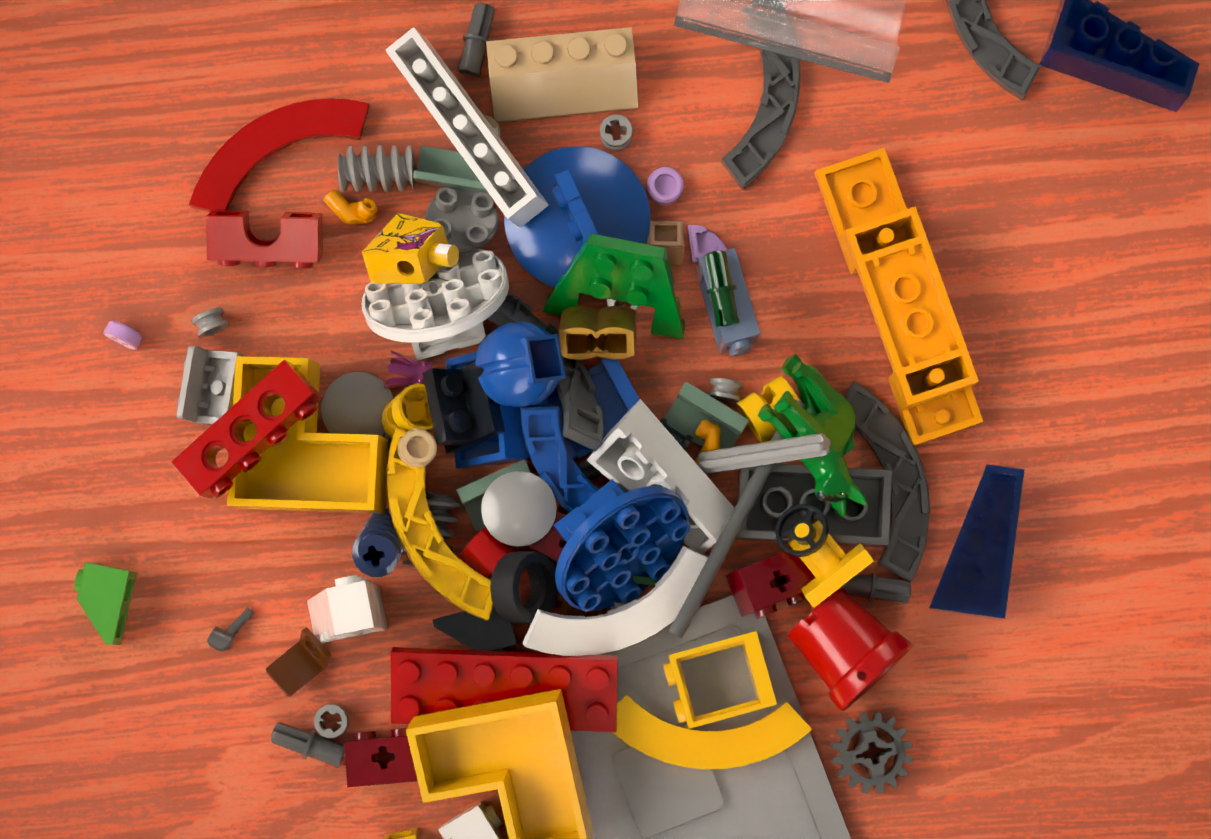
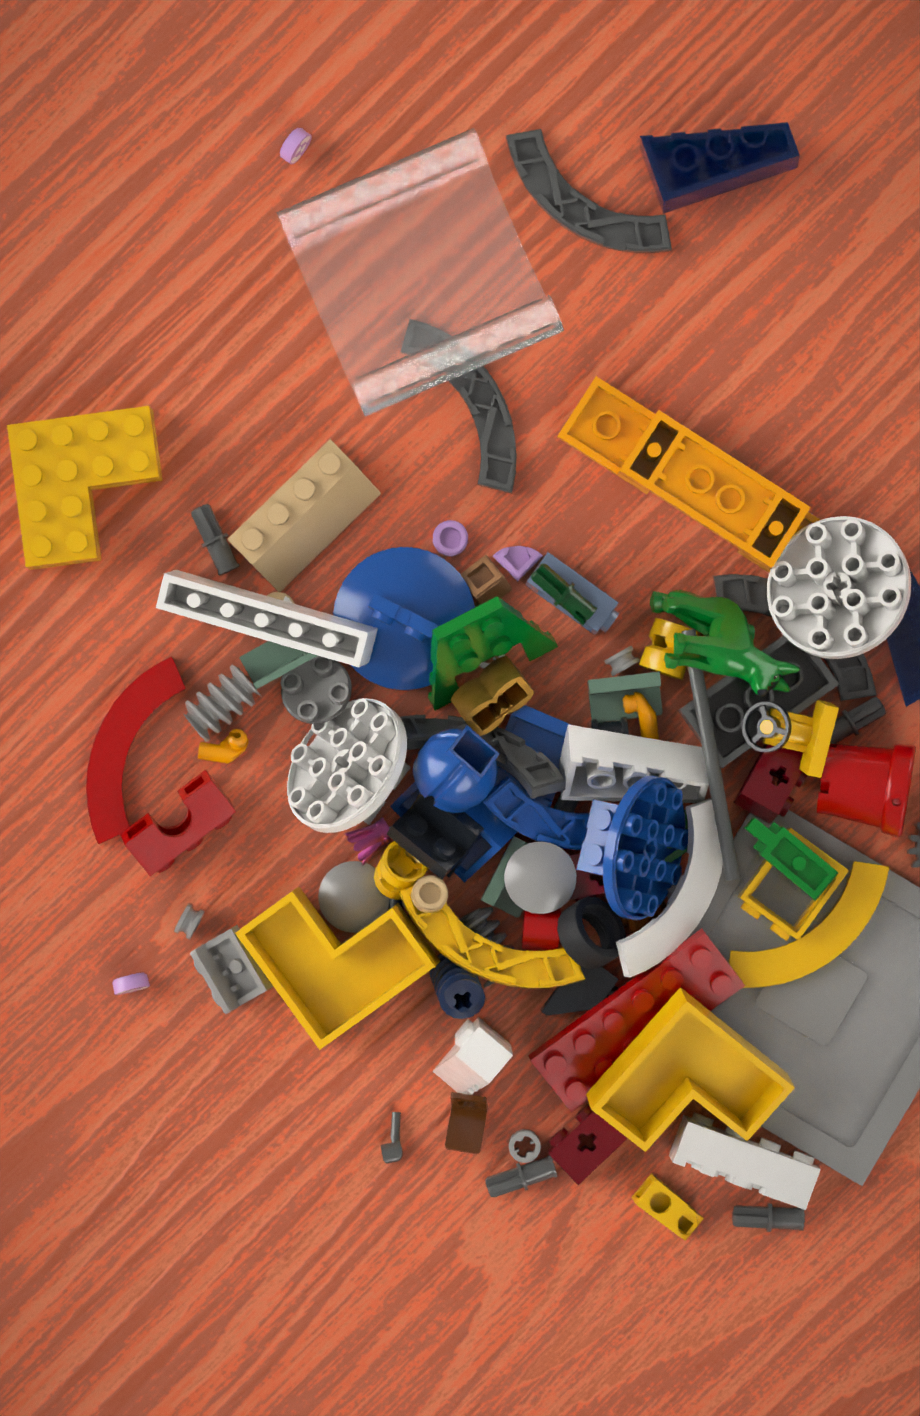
camera: 35 degrees left, 5 degrees up
(105, 598) = (281, 1190): bright green slope -> none
(198, 460) = (273, 1035): red brick -> none
(408, 251) = (300, 748): yellow torso -> none
(607, 139) = (378, 537): light grey bush -> none
(737, 655) = (791, 857): none -> green hinge
(764, 453) = (692, 692): light grey axle -> none
(951, 464) = (839, 587): none -> white bracket

